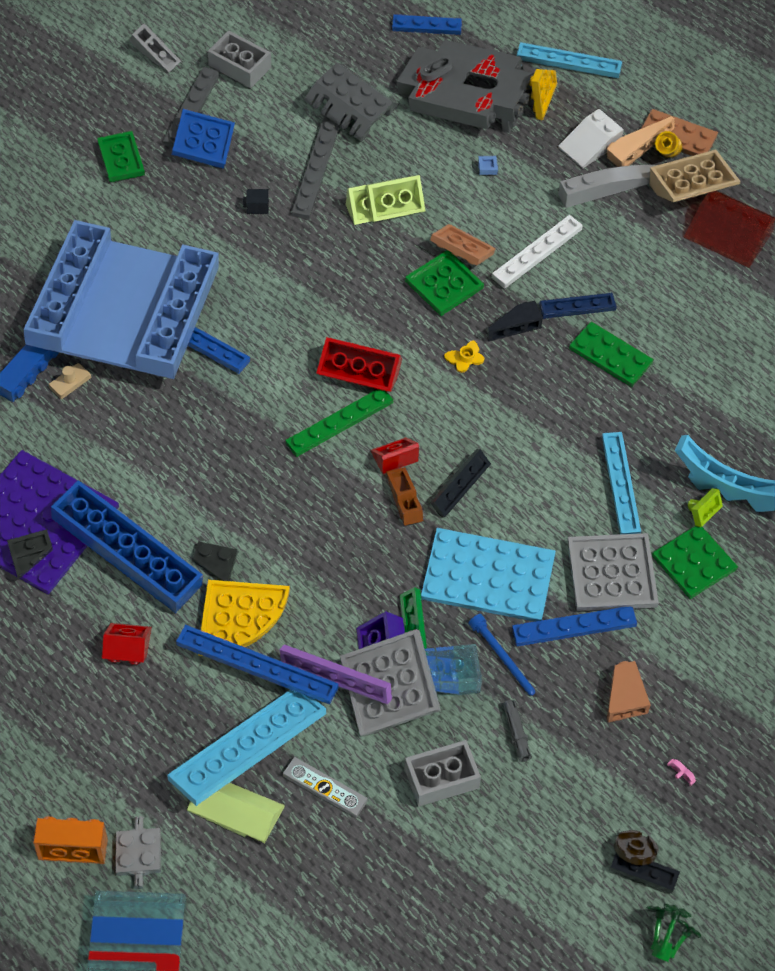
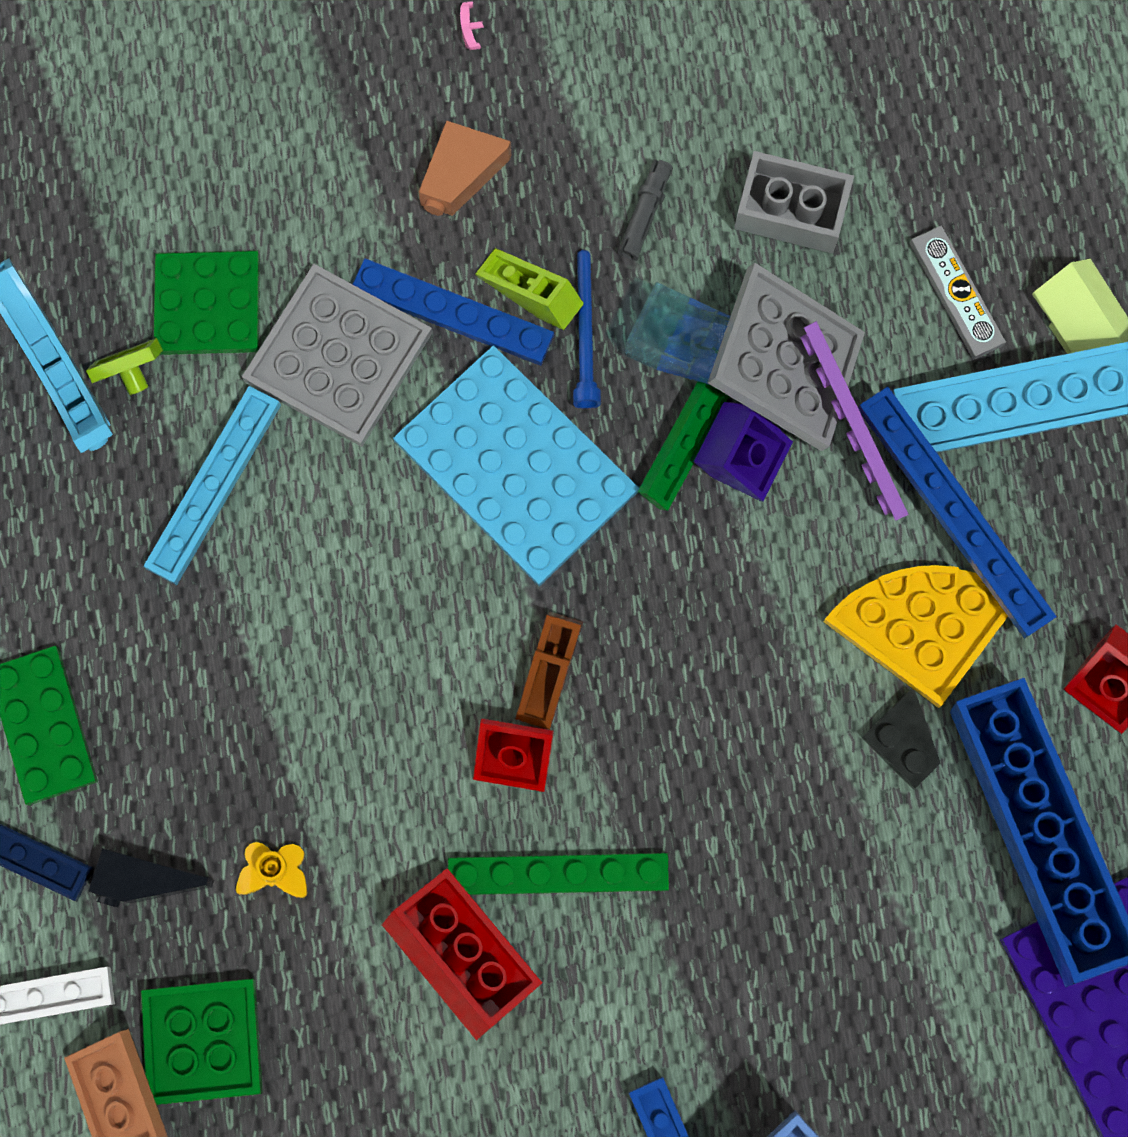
camera: 145 degrees left, 20 degrees up
(460, 483) = (451, 636): black plate -> none
(541, 654) = (532, 288): none -> lime slope

